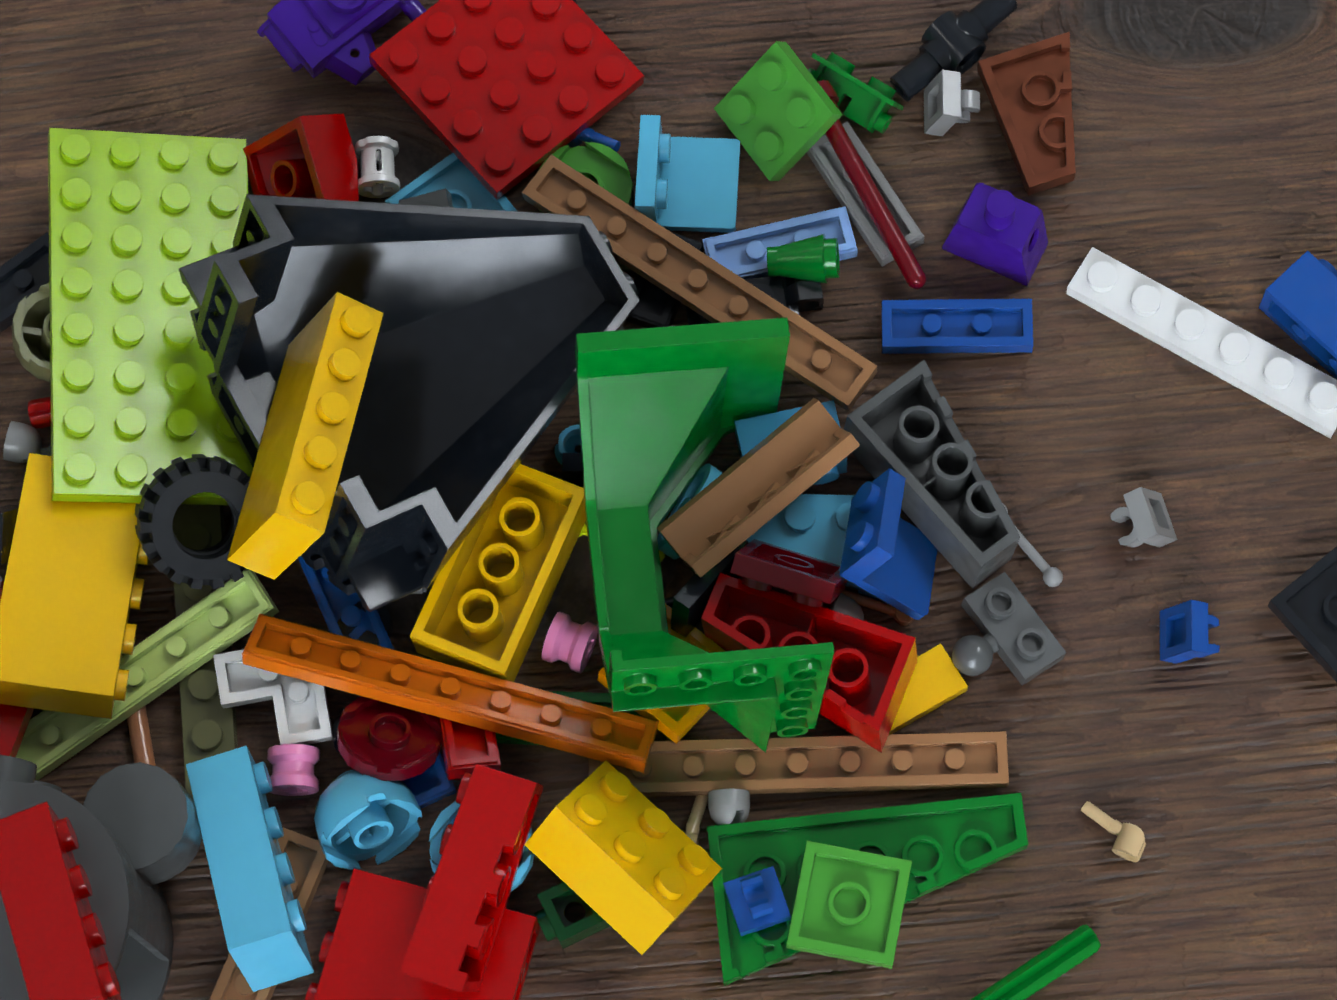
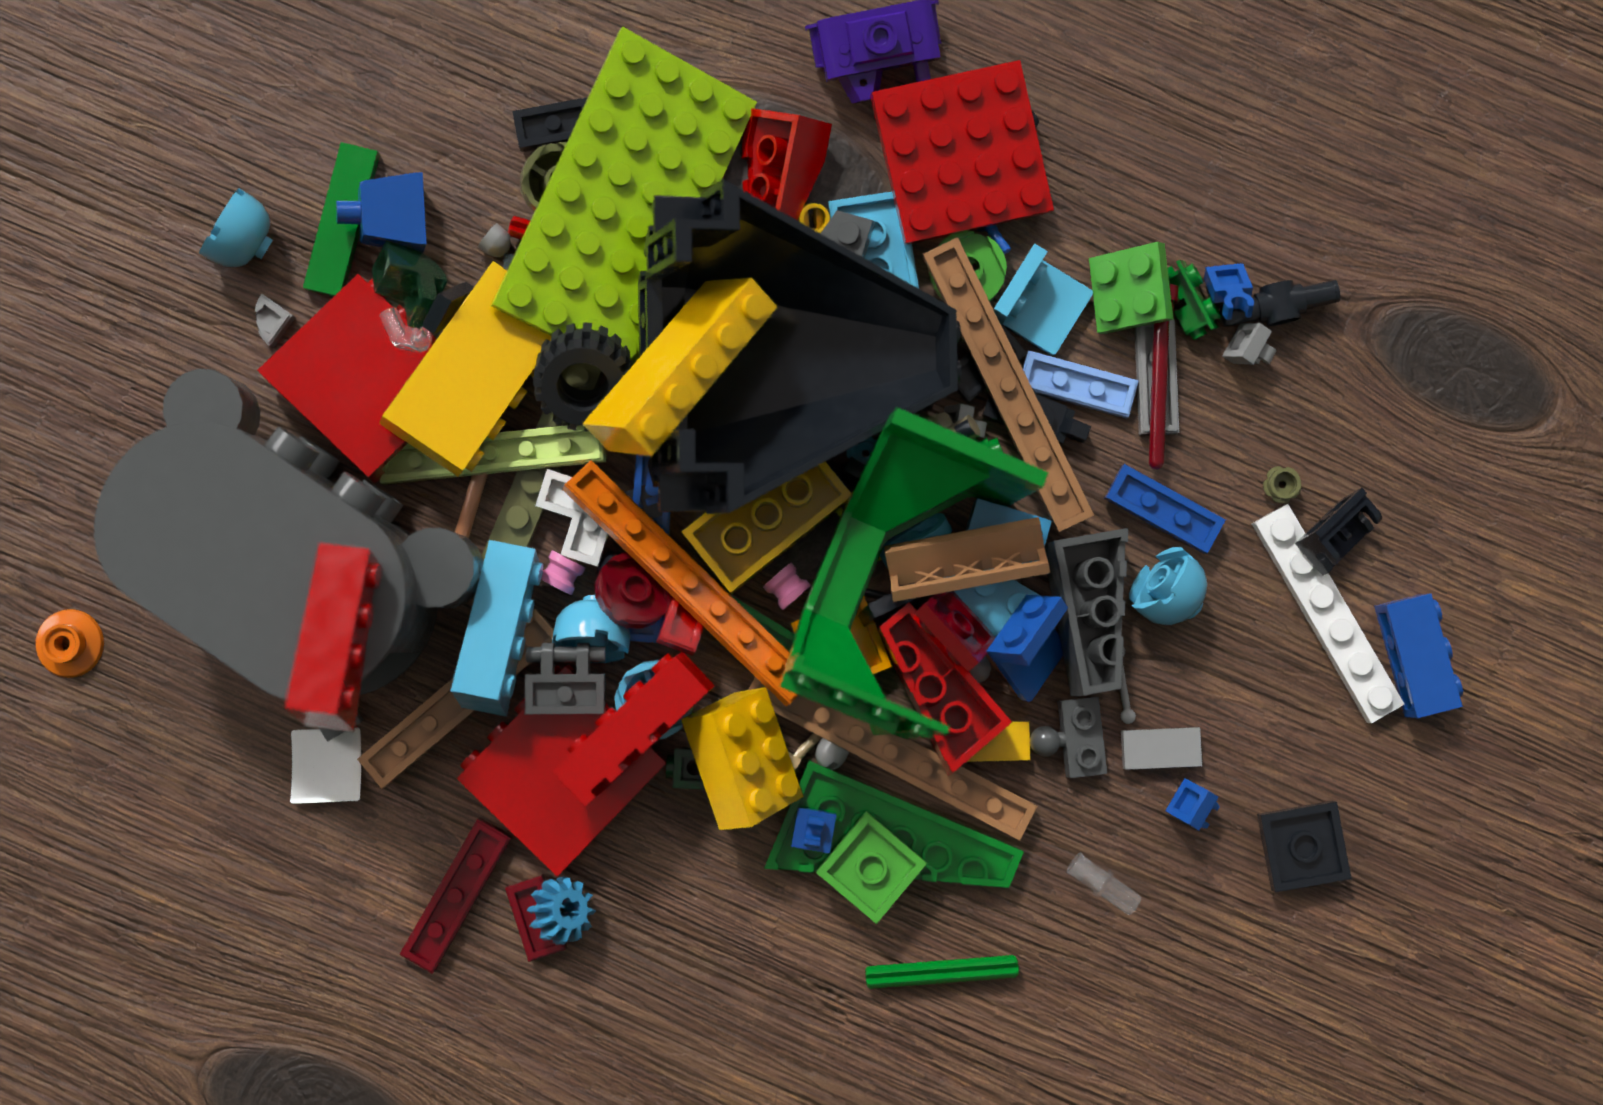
camera: 20 degrees right, 15 degrees up
(369, 156) = (844, 164): white bush -> none
(370, 893) = (565, 692): none -> dark grey plate
(805, 259) = (1089, 407): green cone -> none
(888, 54) = (1231, 286): none -> blue plate
(999, 233) = (1229, 459): dark purple torso -> none
(1016, 406) = (1171, 589): none -> medium azure cylinder
(1034, 109) = (1307, 378): copper wing -> none
(1073, 218) = (1291, 480): none -> olive plate
(1112, 591) = (1161, 748): none -> light grey tile
(1130, 838) = (1075, 918): tan hand -> none
(1139, 781) = (1104, 884): none -> clear axle
(1149, 519) = (1214, 713): light grey tile -> none
(1166, 242) = (1339, 531): none -> black hinge

